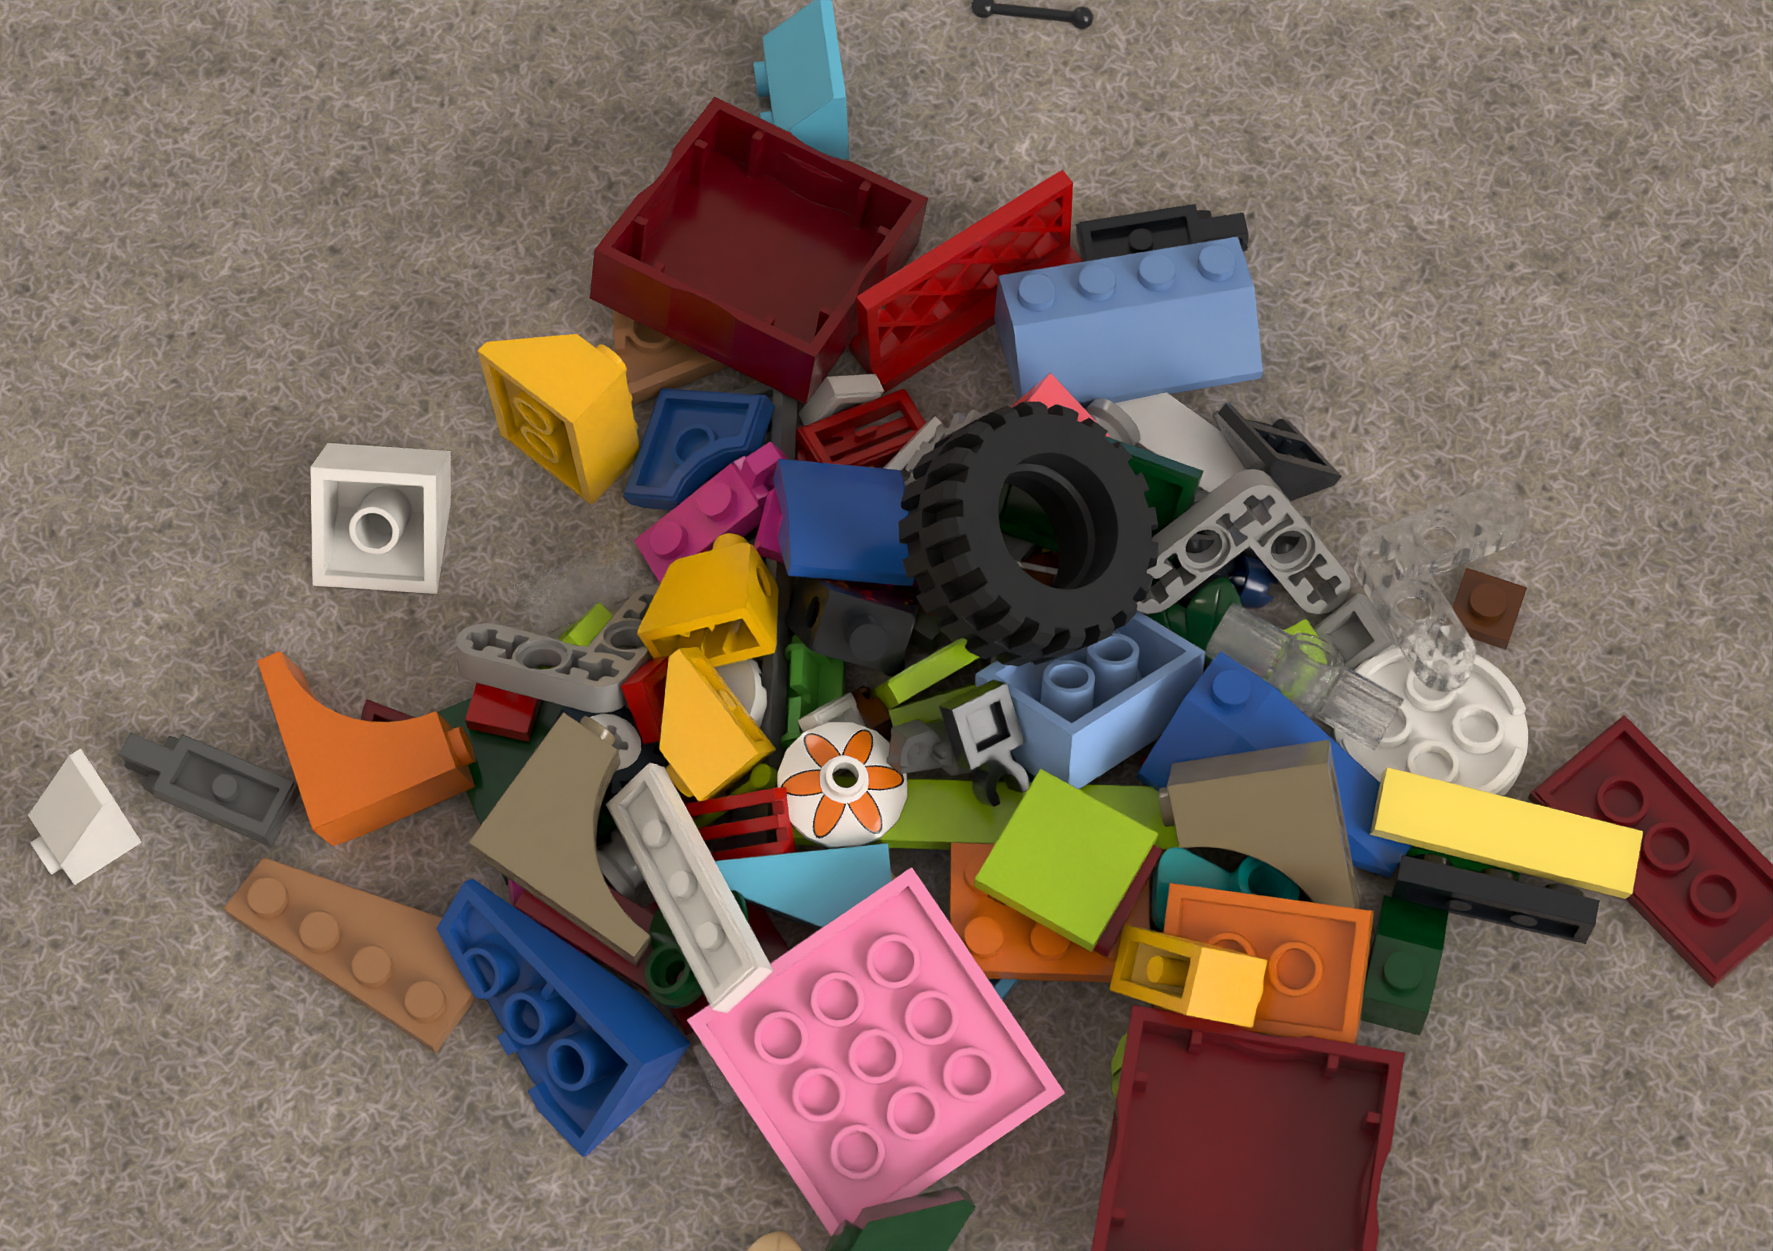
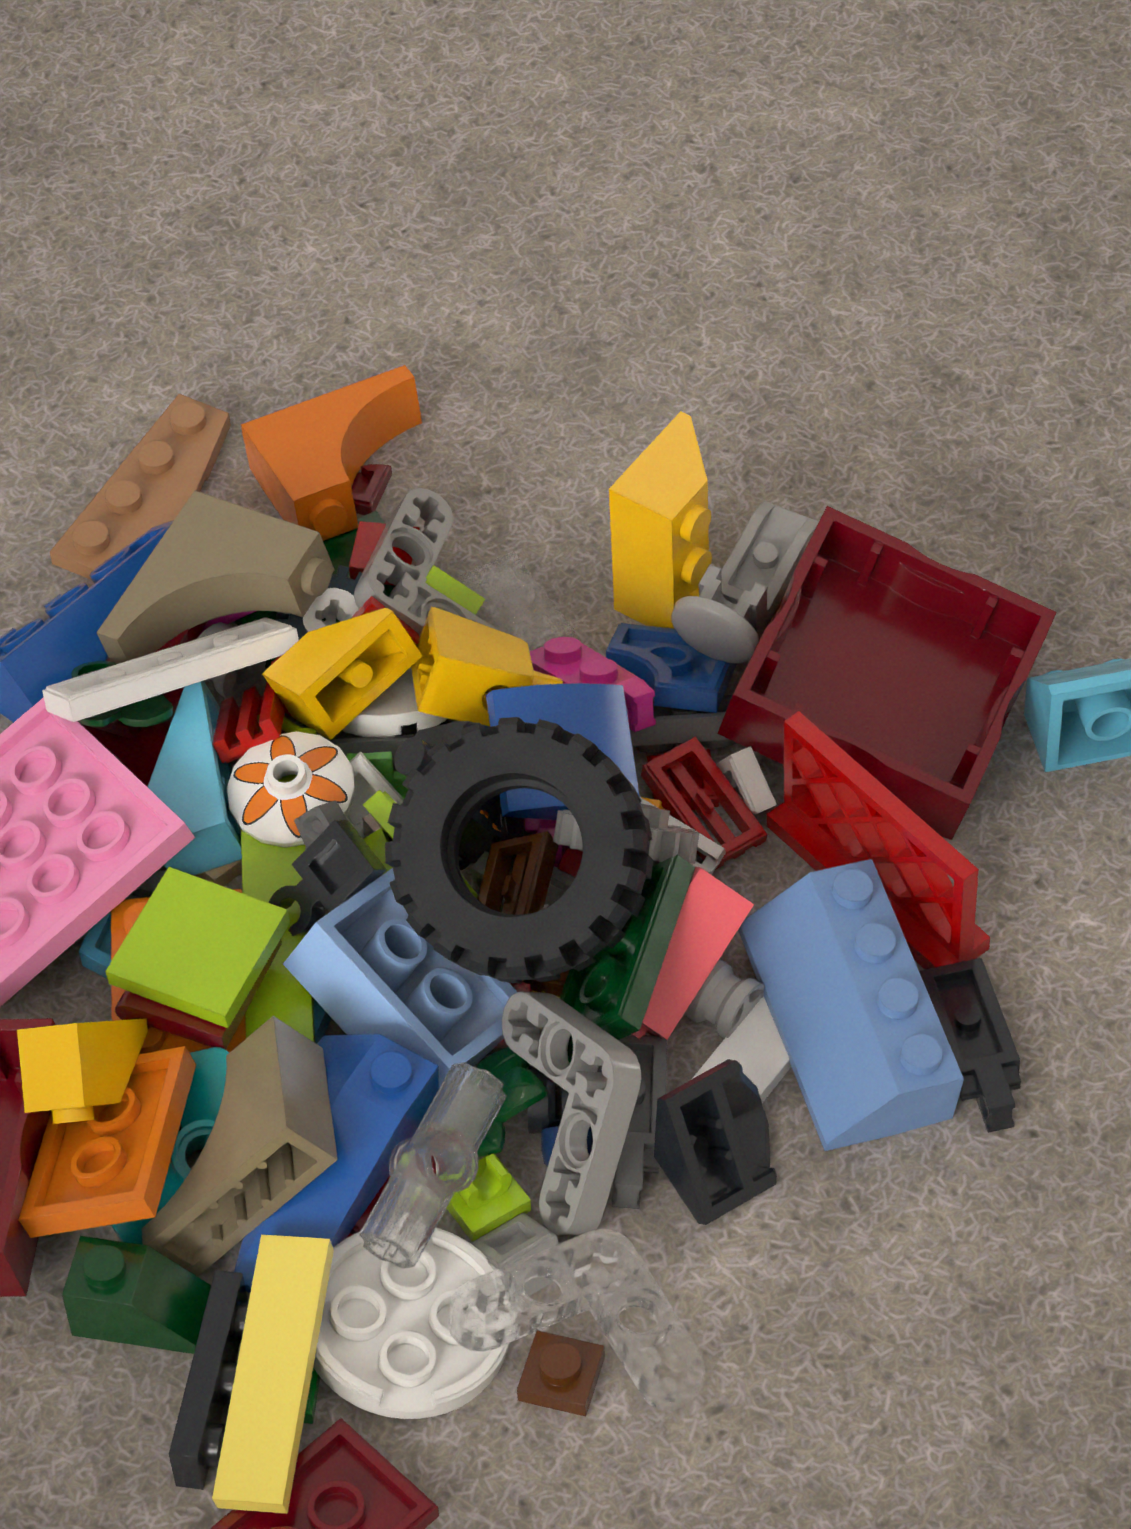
camera: 85 degrees right, 15 degrees down
(79, 822) = (250, 283): white slope -> none
(213, 784) = (297, 362): dark grey hinge -> none
(379, 517) = (574, 439): white slope -> none
(652, 365) = (744, 595): none -> light grey piece

